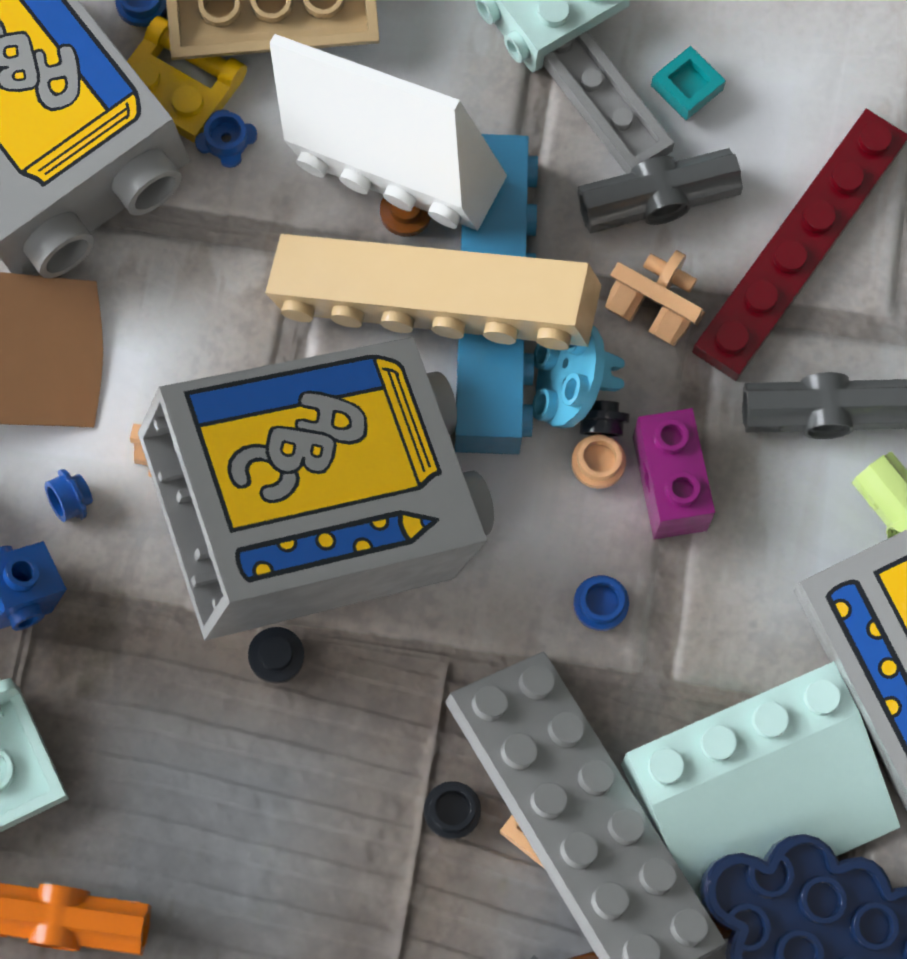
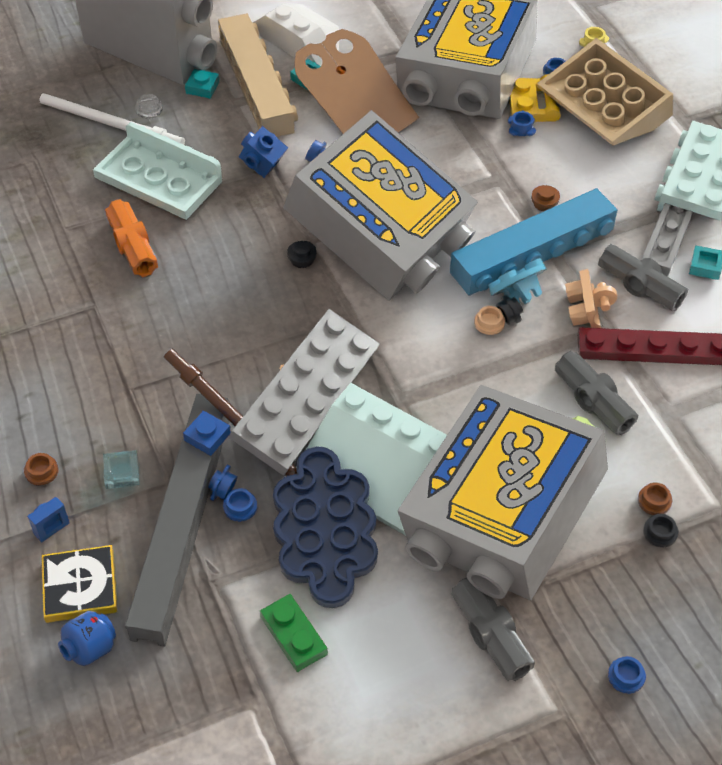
camera: 60 degrees right, 20 degrees down
(384, 135) = (562, 151): white slope -> none
(435, 290) = (511, 208): tan brick -> none
(452, 810) = (278, 347): black plate -> none
(601, 603) = (421, 354): blue plate -> none
(673, 473) = (505, 346): magenta brick -> none

